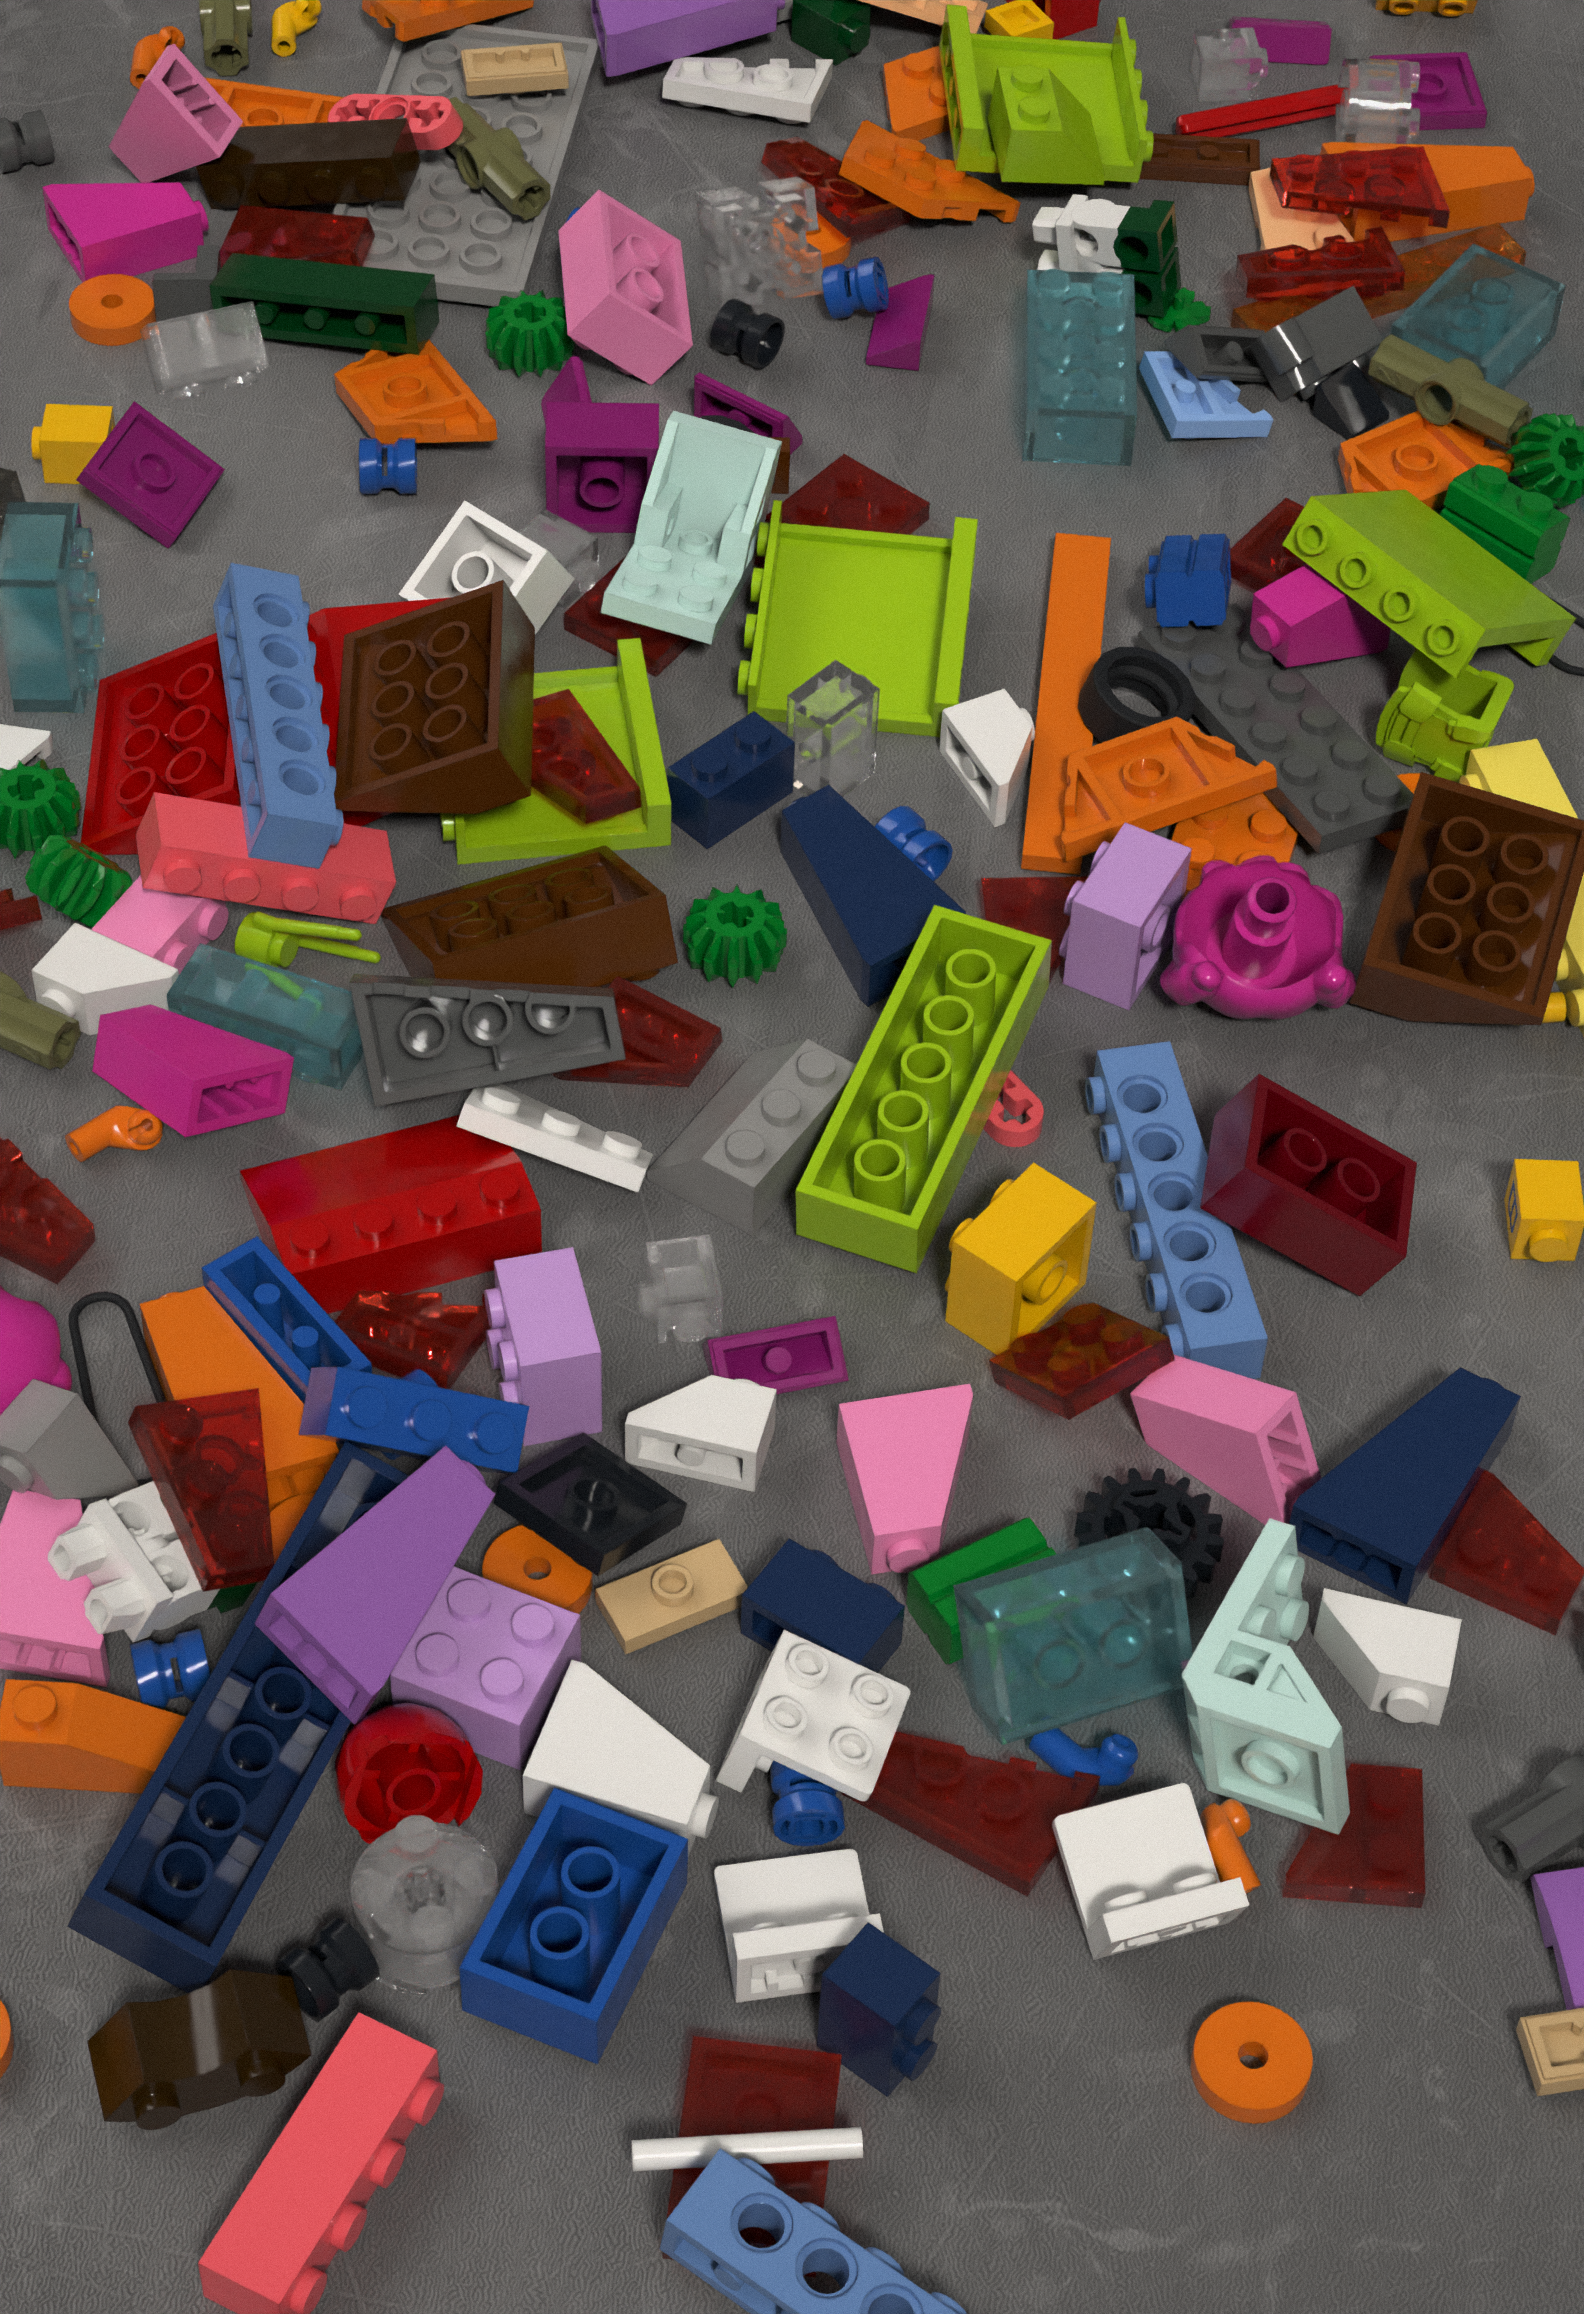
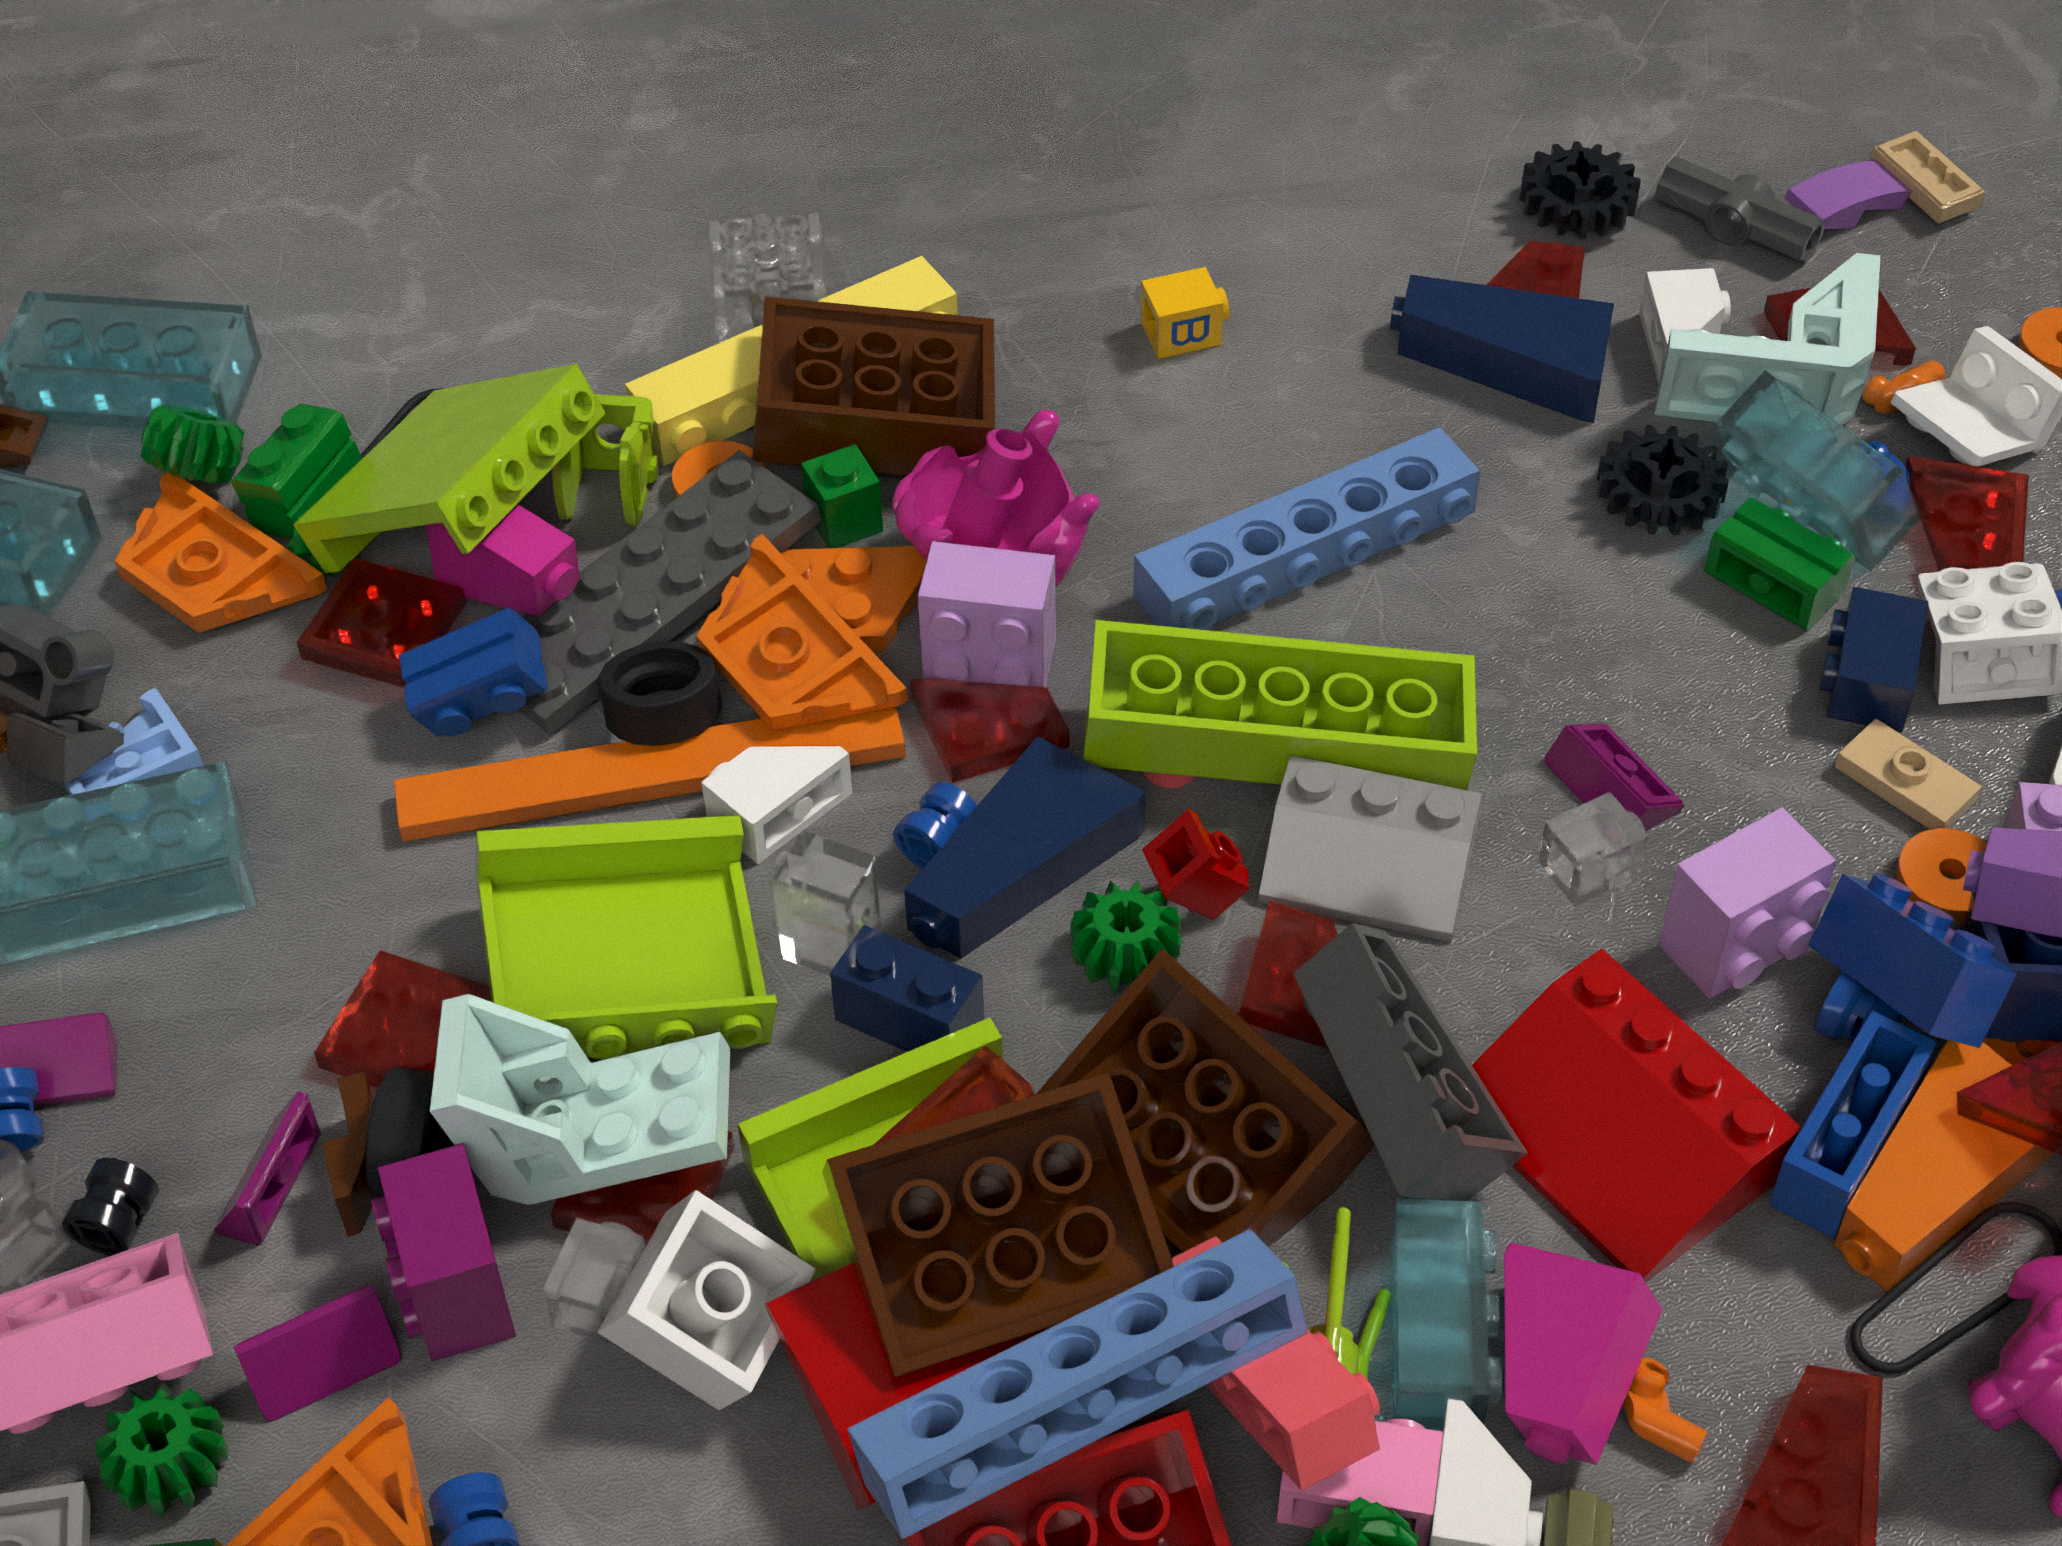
camera: 105 degrees left, 0 degrees up
(415, 1333) = (1763, 1035): clear red wing -> none
(554, 1135) = (1480, 990): white wing -> none
(590, 1504) = (1884, 829): black plate -> none
(706, 1432) = (1730, 775): white slope -> none
(778, 970) = (1197, 866): none -> red brick
(903, 1471) = (1695, 641): bright pink slope -> none
(1019, 1259) = (1450, 592): yellow brick -> none
(1081, 1359) = (1517, 550): clear red plate -> none
(1229, 1434) = (1539, 442): bright pink slope -> none
(1309, 1185) = (1273, 423): dark red brick -> none
(1349, 403) = (124, 633): black slope -> none
(1351, 867) = (845, 494): none -> green brick
(1449, 390) = (108, 528): olive piece -> none

